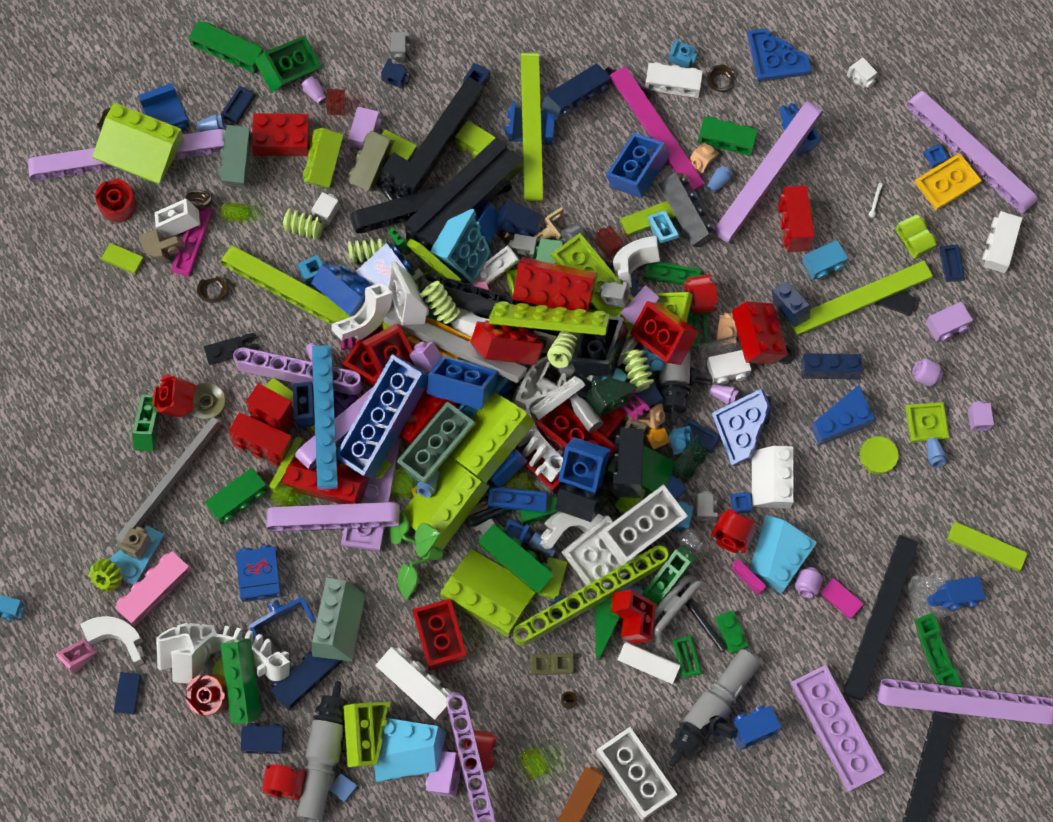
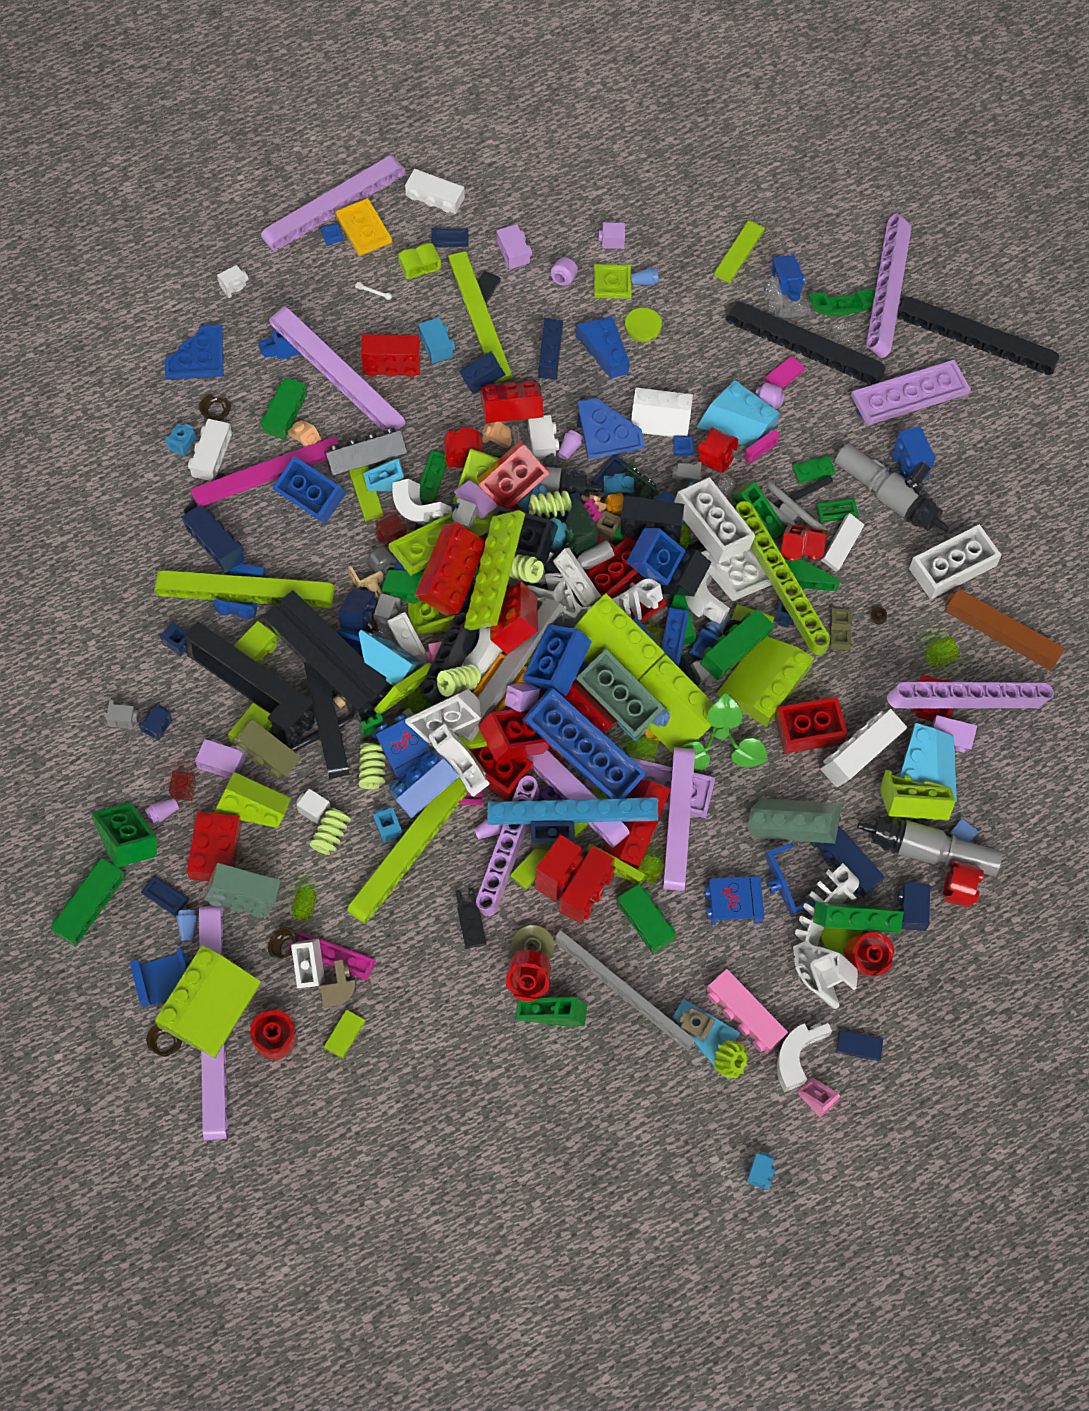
camera: 85 degrees left, 5 degrees down
(202, 286) = (396, 922): dark brown piece -> none
(719, 179) = (331, 421): medium blue cone -> none

